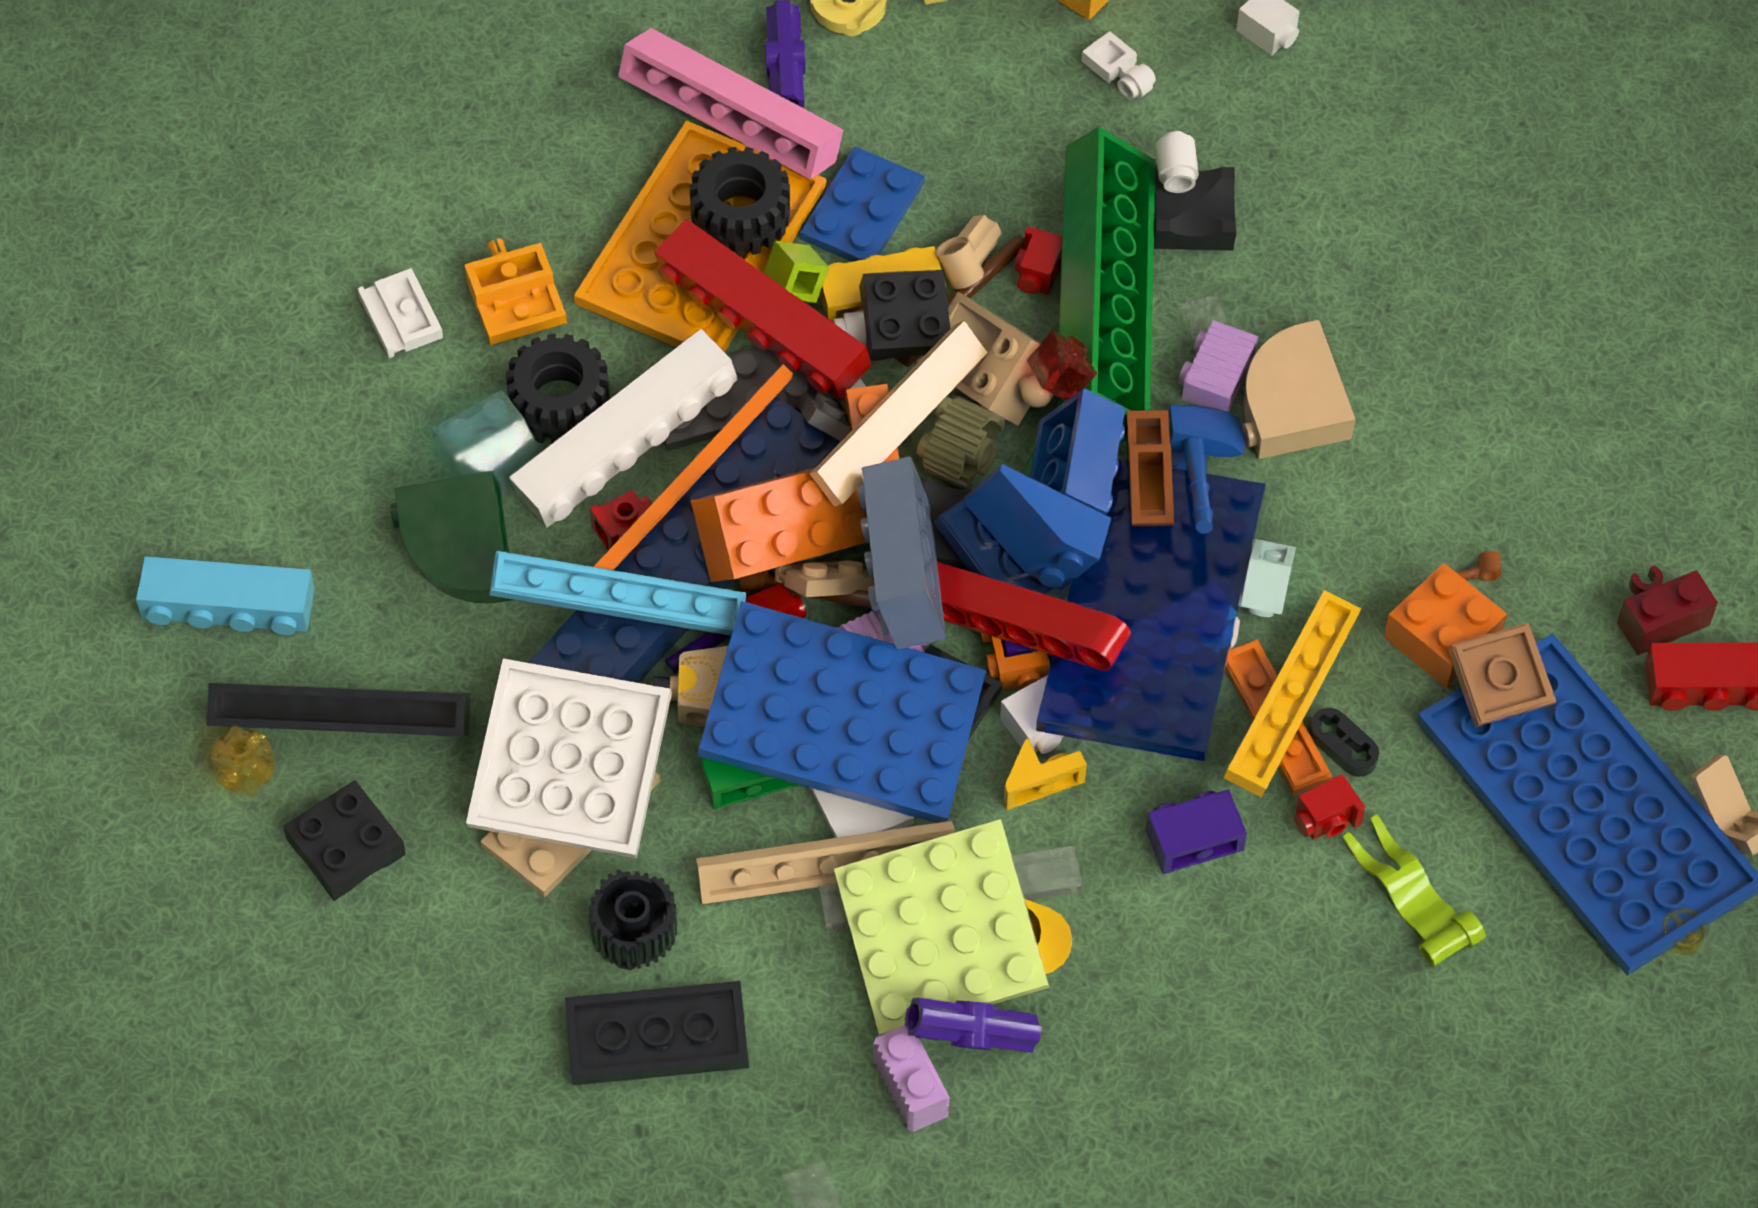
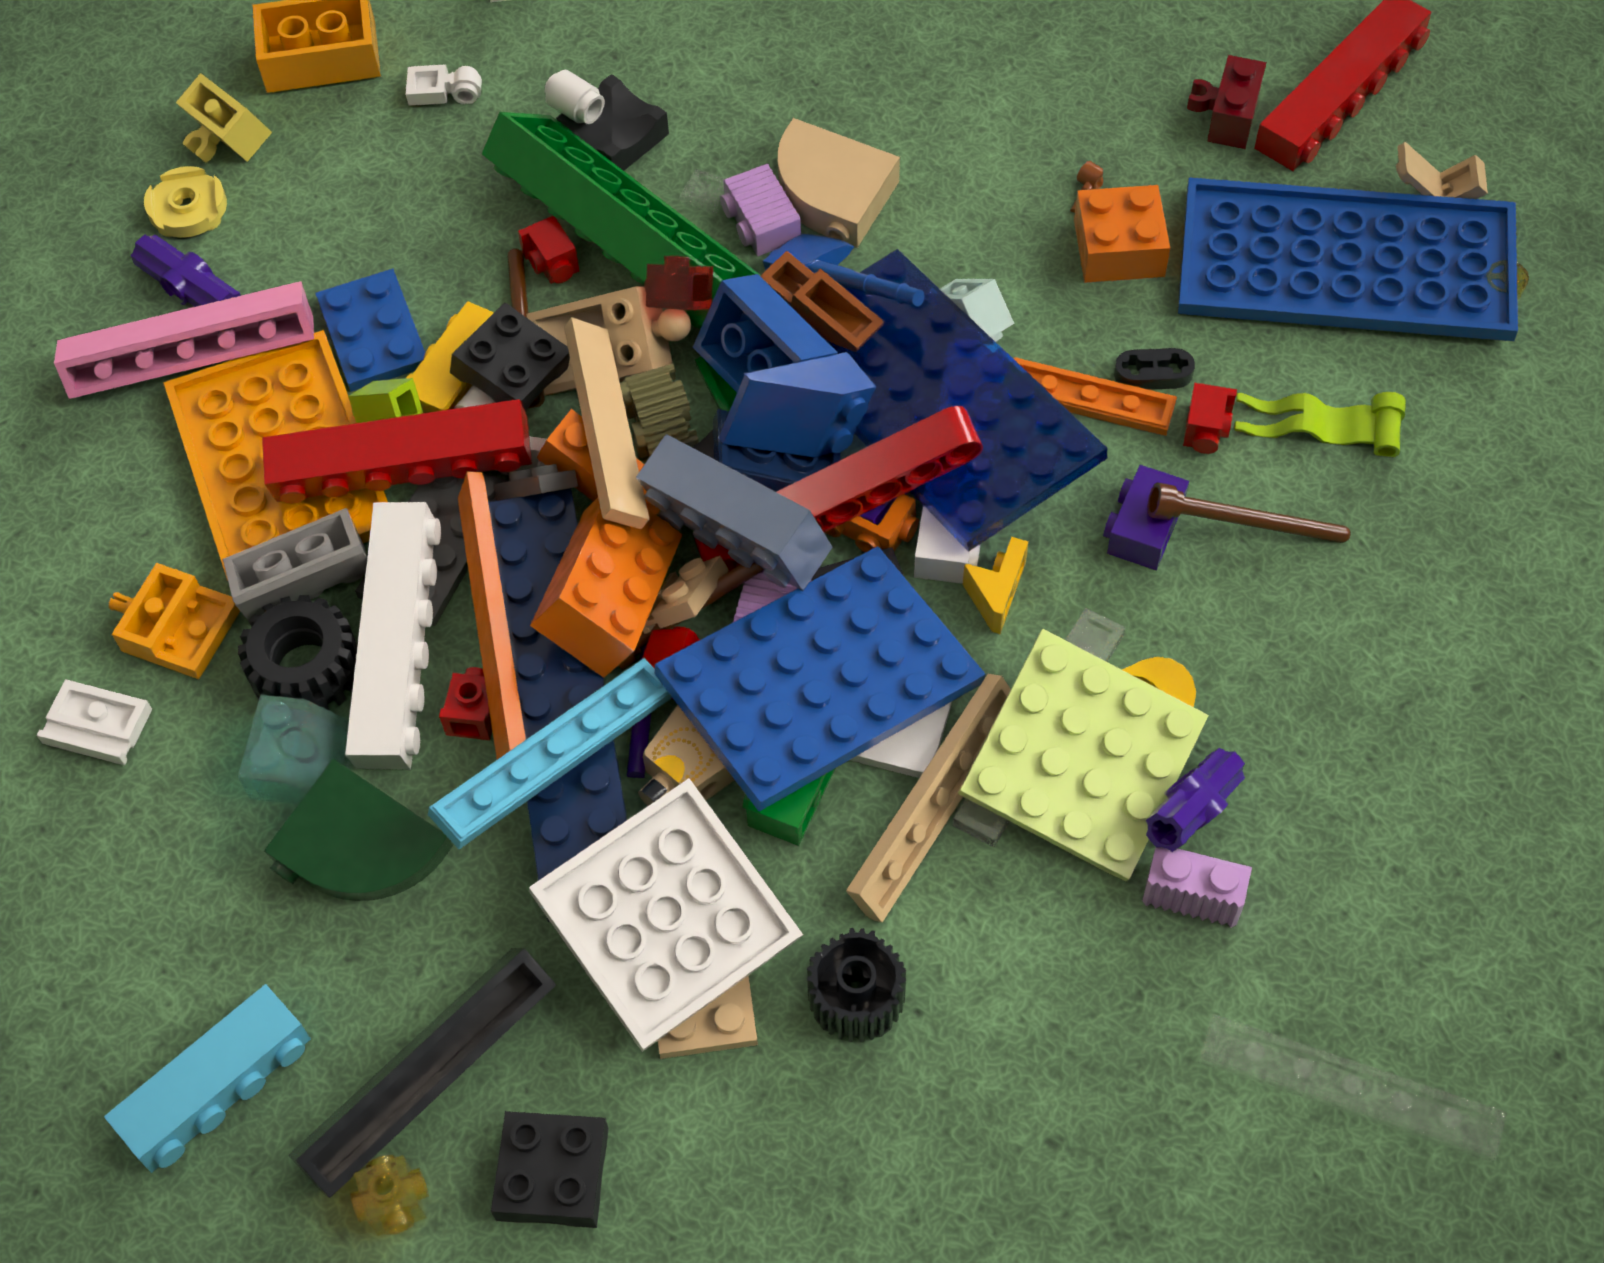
camera: 45 degrees left, 0 degrees up
(617, 323) = (297, 564): none -> light grey slope
(656, 1033) = (975, 1055): black plate -> none
(747, 176) = (279, 368): black tyre -> none
(964, 254) = (492, 283): tan piece -> none
(1206, 831) = (1167, 502): none -> reddish brown piece
(1292, 694) = (1093, 367): yellow plate -> none
(1501, 674) = (1205, 225): medium nougat tile -> none

